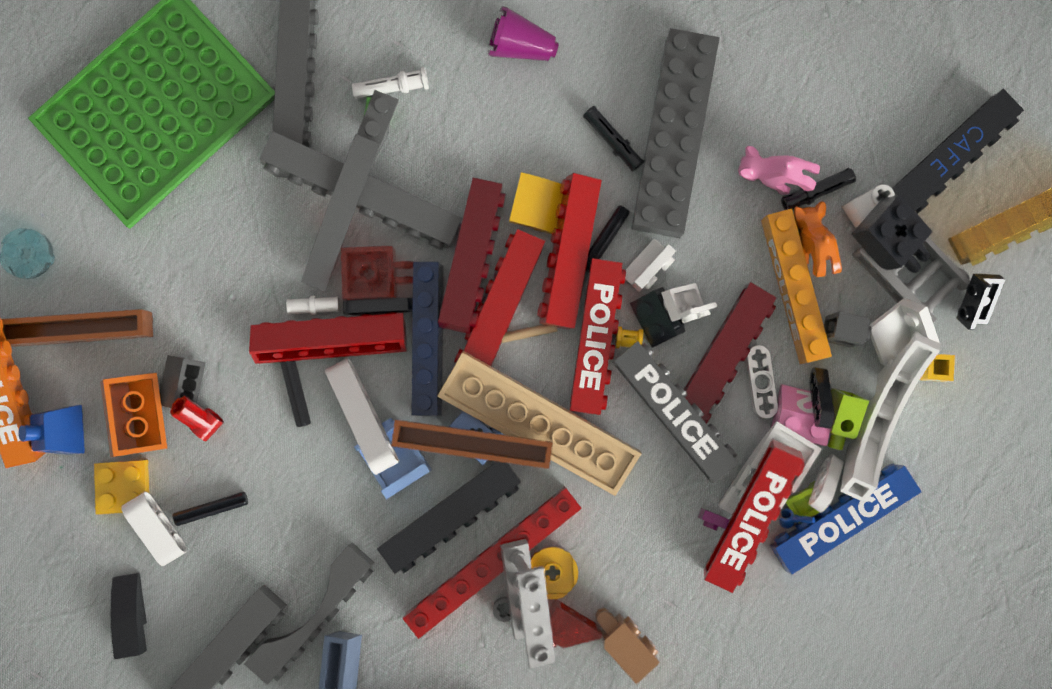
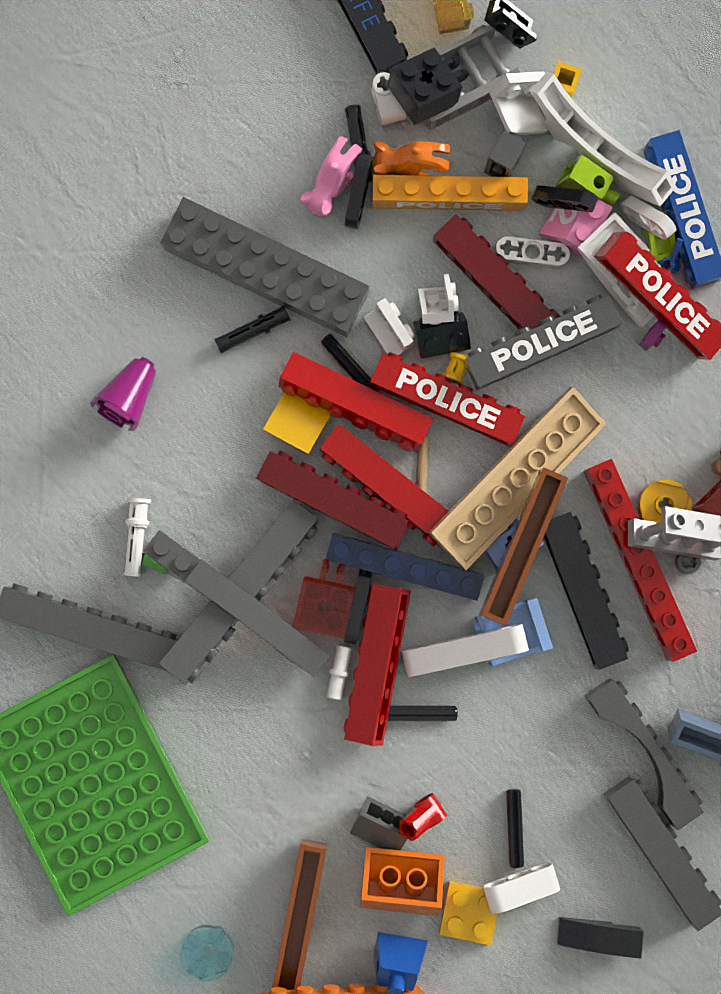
camera: 80 degrees left, 0 degrees up
(772, 200) = (358, 191): none -> black beam

